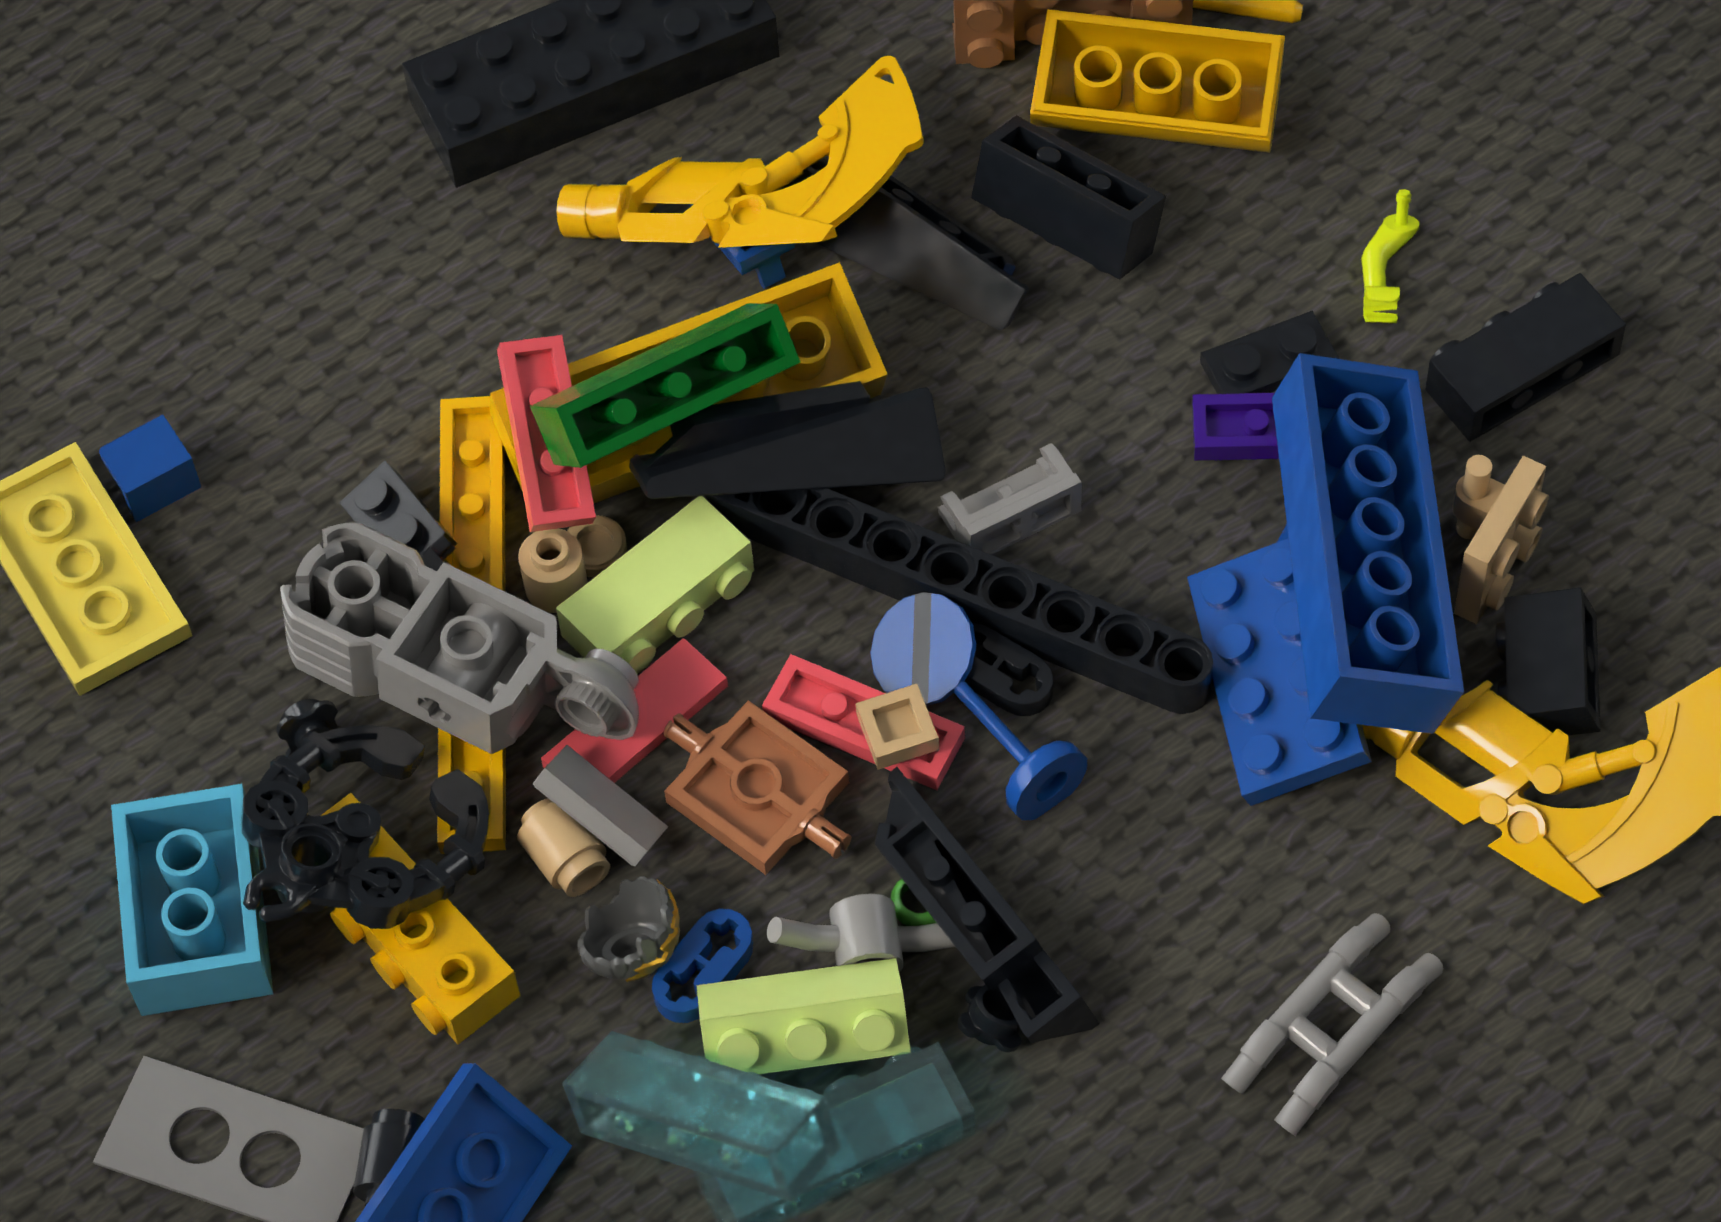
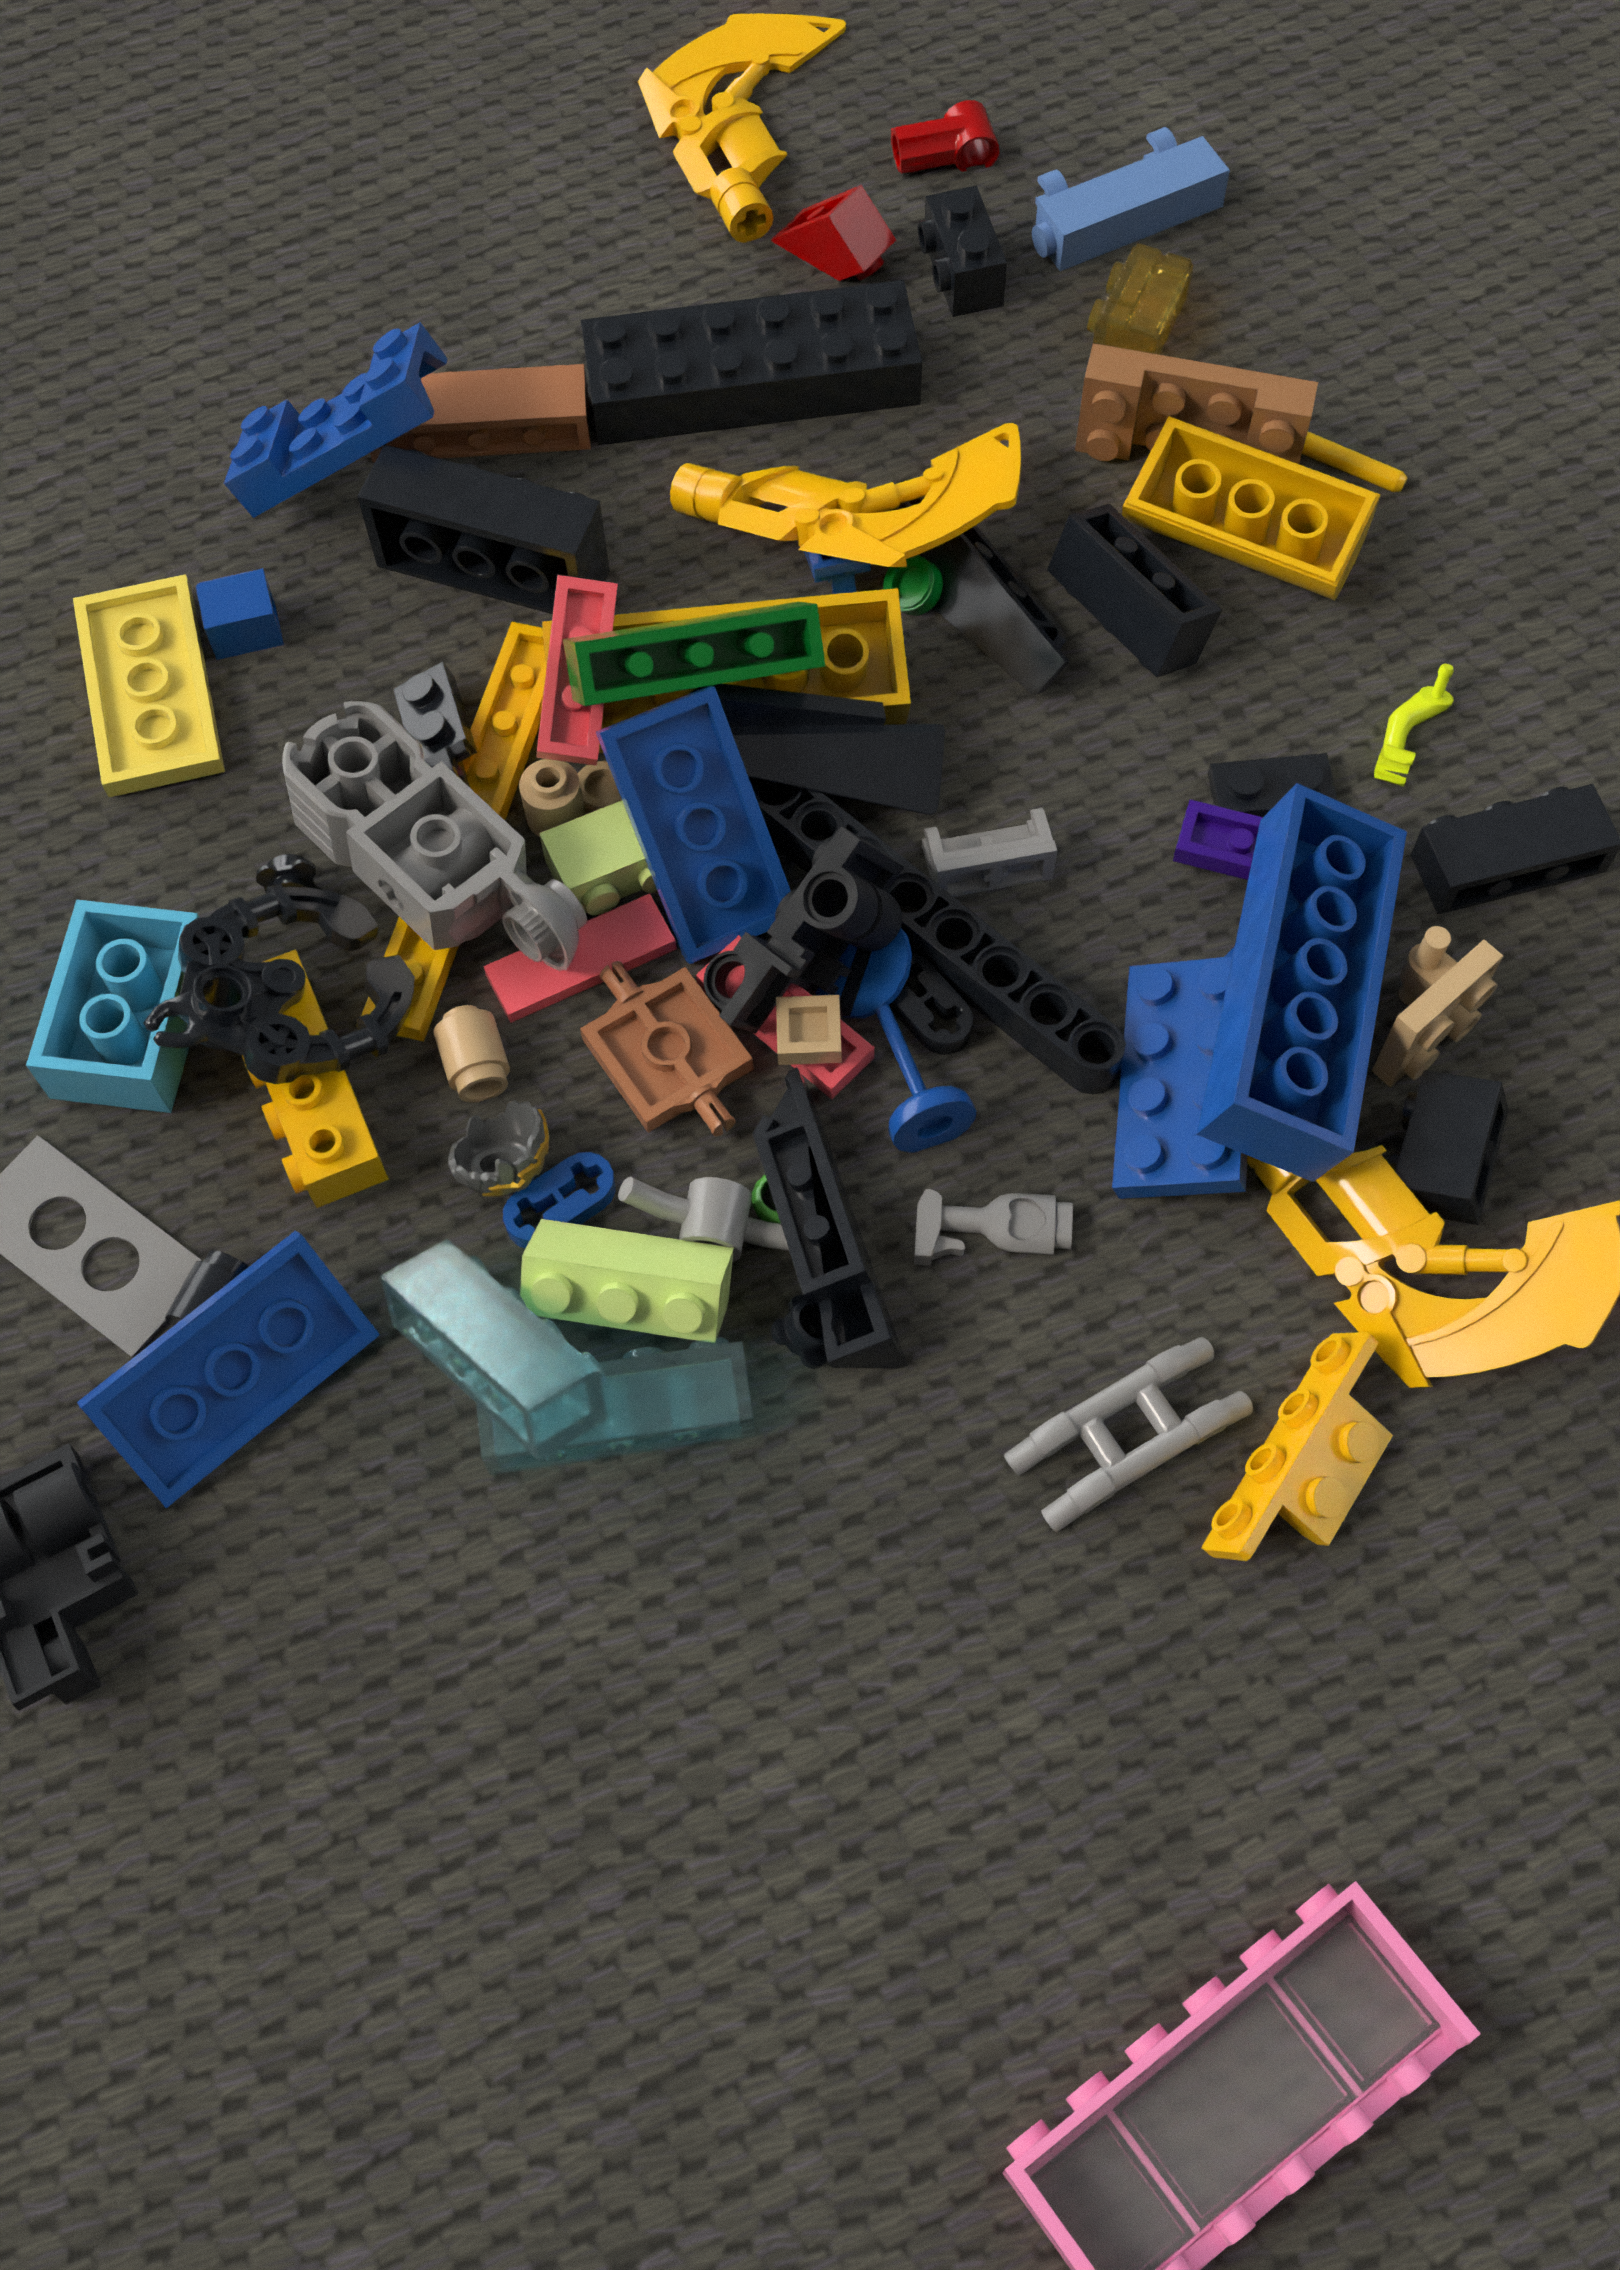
camera: 15 degrees right, 5 degrees up
(147, 285) = (292, 451): none -> blue piece
(321, 188) = (502, 413): none -> nougat brick
(382, 314) = (479, 528): none -> black brick
(600, 805) = (515, 1025): light grey tile -> none
(720, 554) = (696, 821): none -> blue plate
(850, 248) = (917, 584): none -> green tile
(887, 598) = (833, 907): none -> black plate
(1152, 857) = (1010, 1222): none -> light grey piece
(1512, 995) = (1311, 1458): none -> yellow bracket

